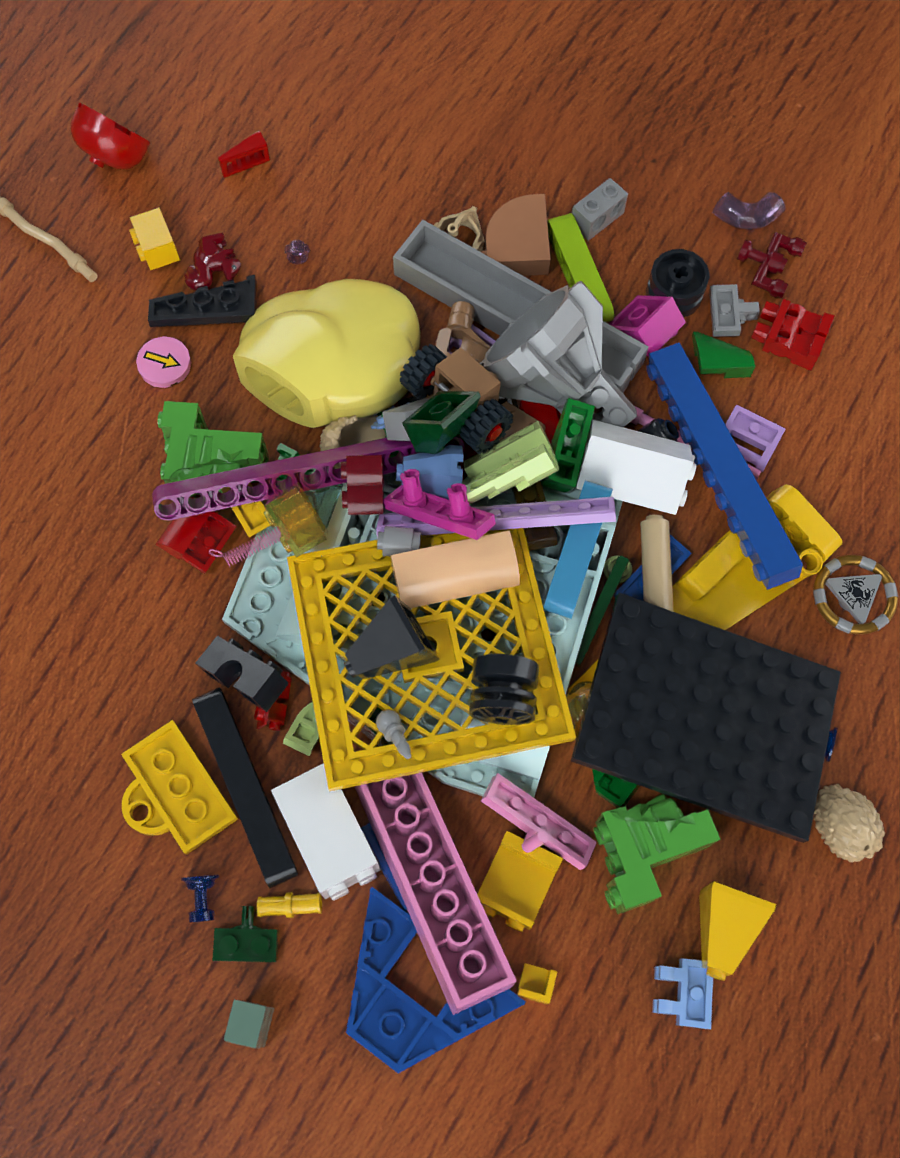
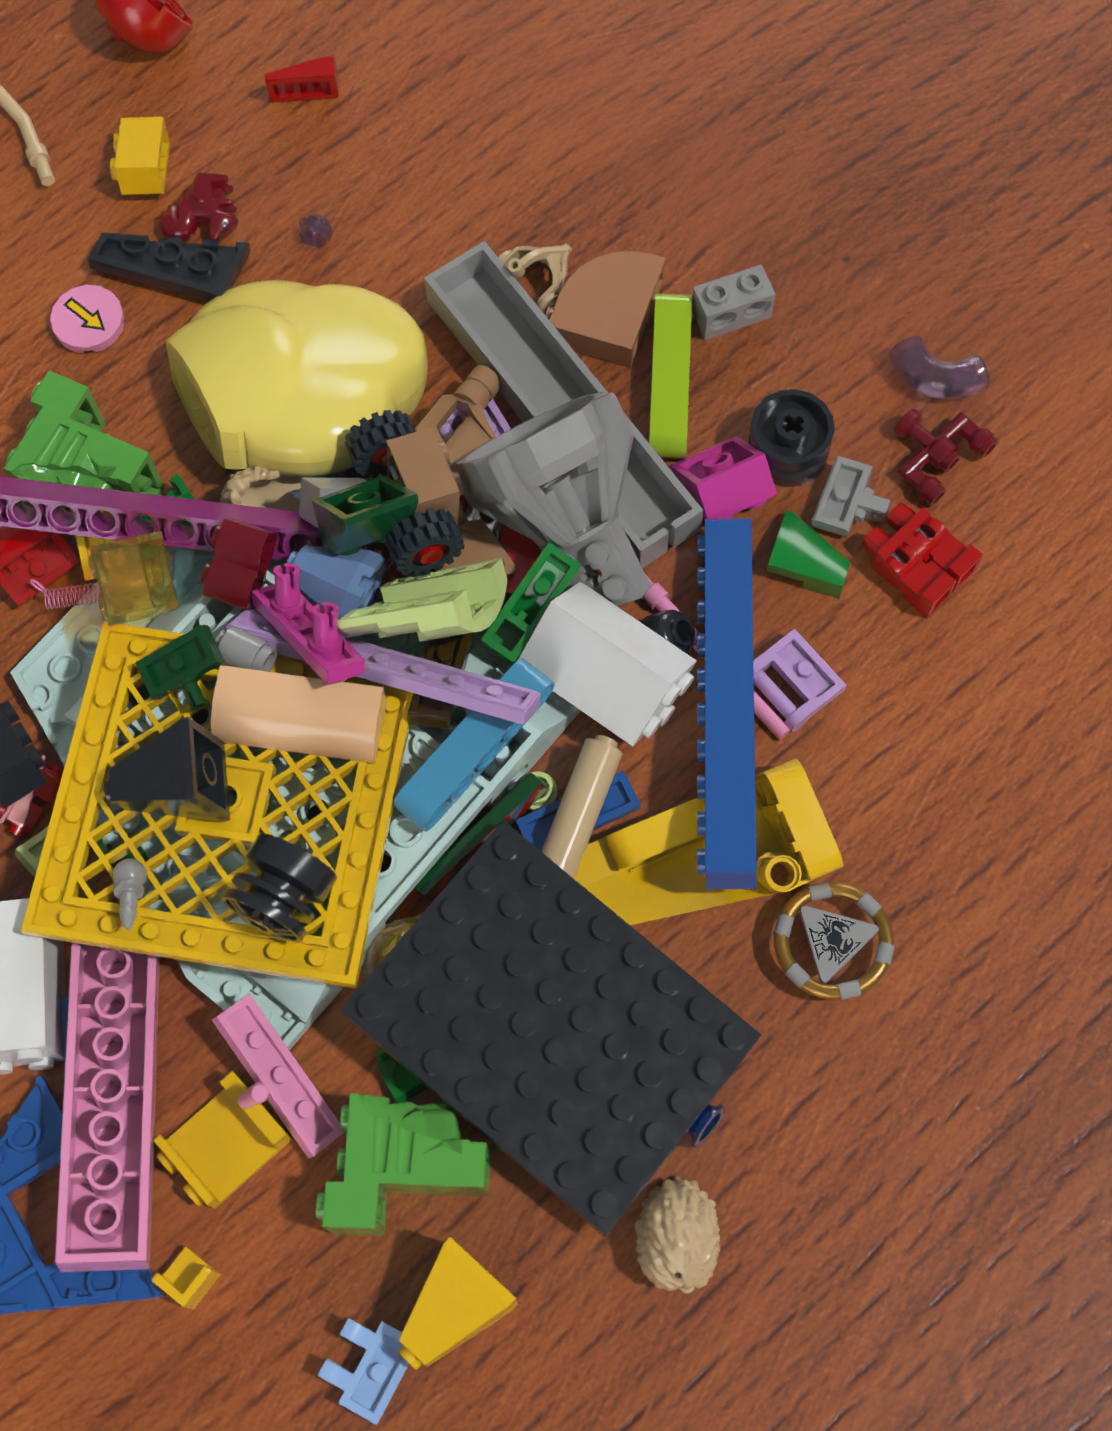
camera: 25 degrees right, 0 degrees up
(361, 566) = (181, 666): none -> dark green plate

